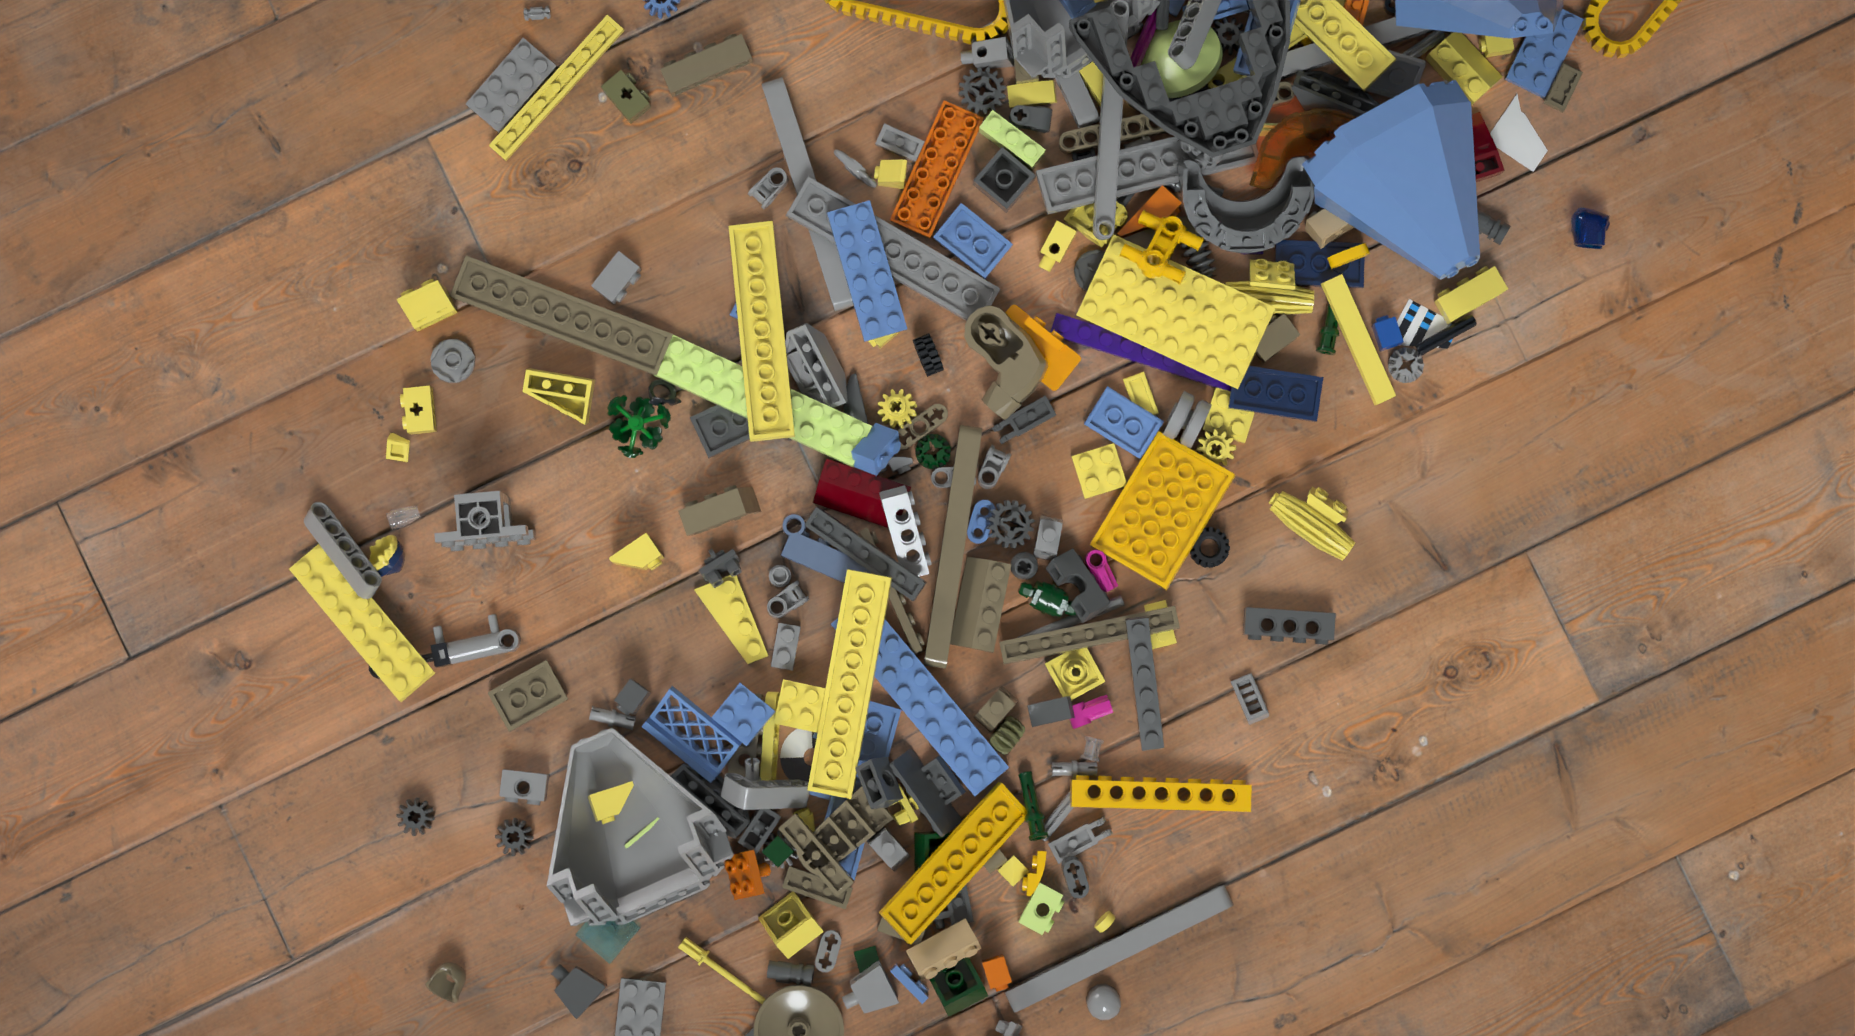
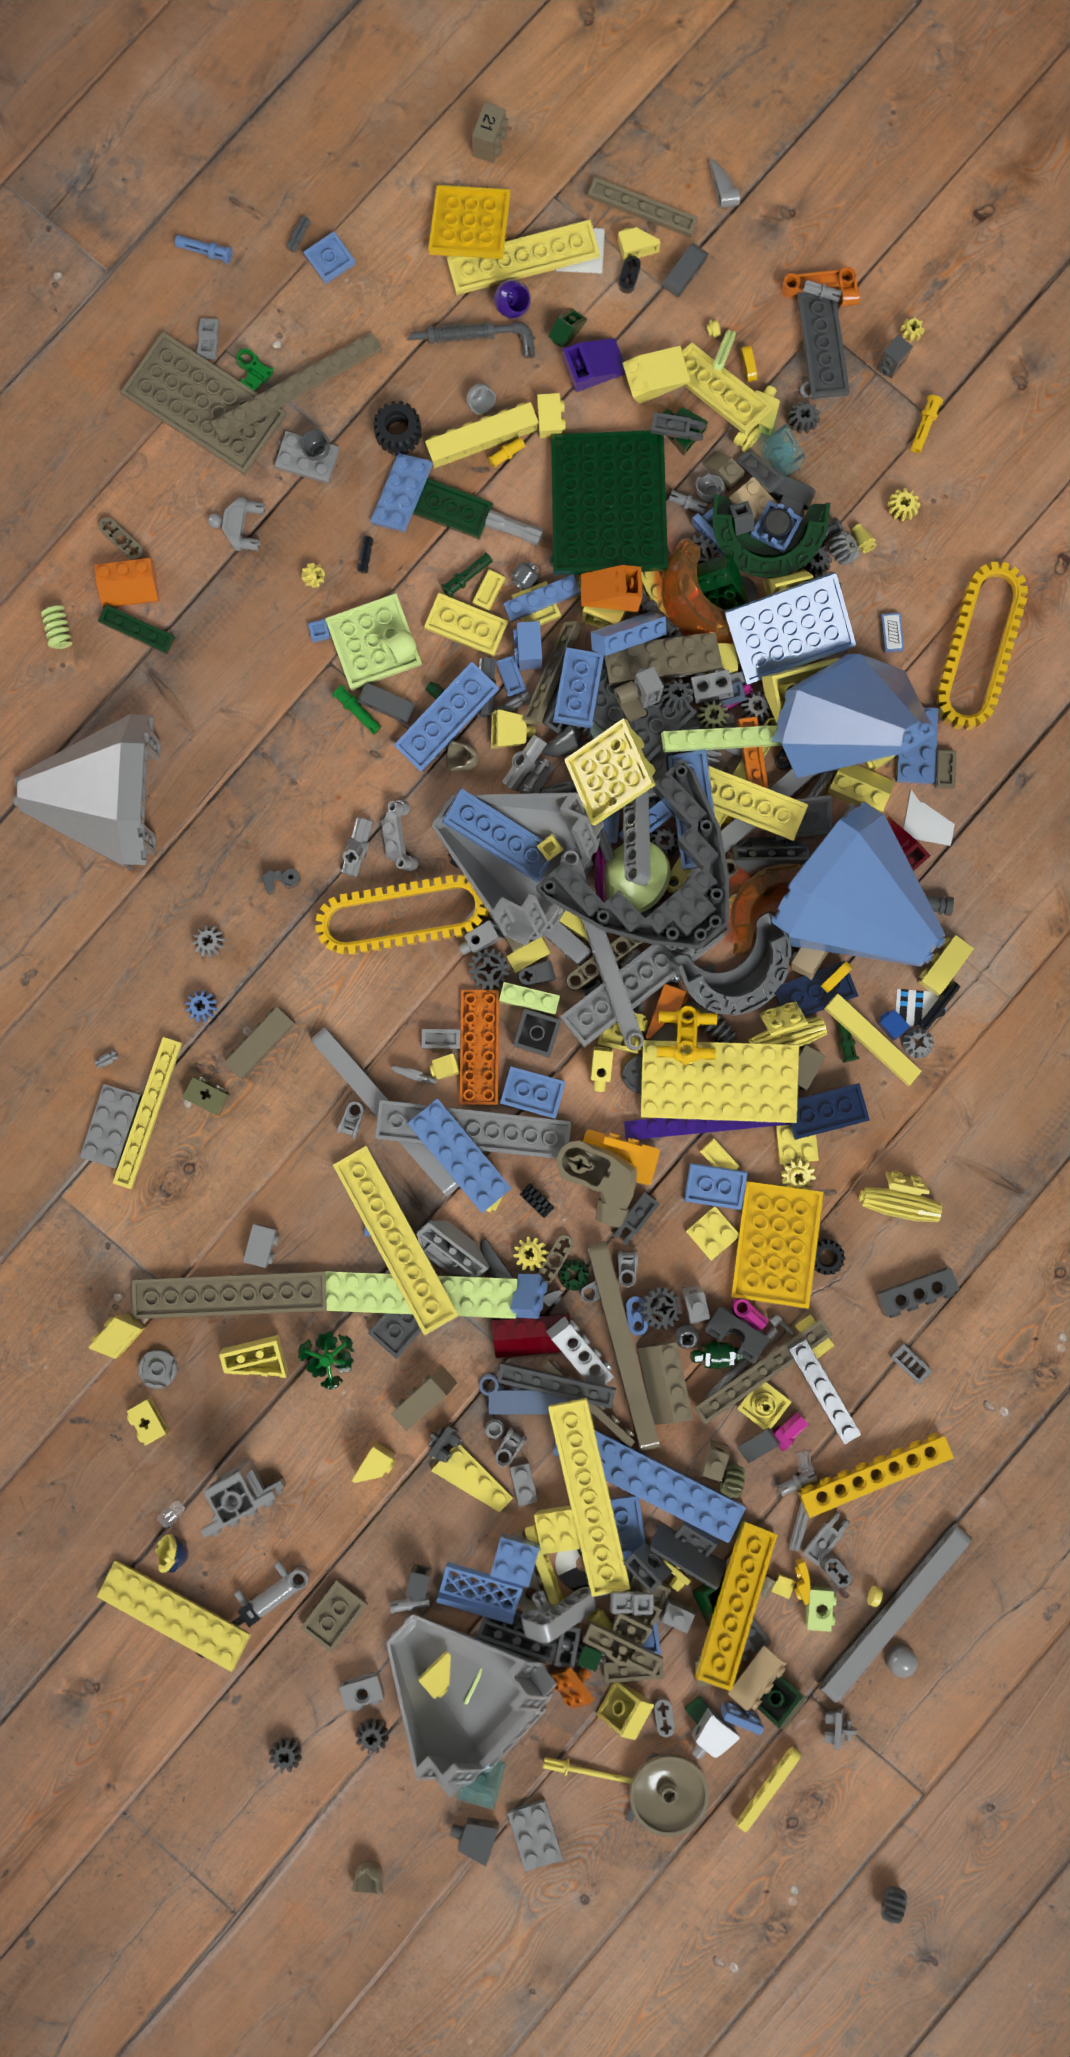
camera: 20 degrees left, 0 degrees up
(342, 550) = (136, 1573): light grey beam -> none
(397, 448) = (143, 1459): light yellow slope -> none
(673, 400) = (347, 1323): black piece -> none
(788, 972) = (642, 1748): dark grey axle -> none
(846, 811) = (631, 1602): none -> light grey slope
(997, 972) = (807, 1678): orange brick -> none
(1031, 818) = (786, 1536): dark green pin -> none
(1125, 591) = (776, 1320): none -> light grey hand
(1184, 418) = (766, 1163): light grey wheel -> none
(1589, 228) = (1016, 871): clear blue piece -> none

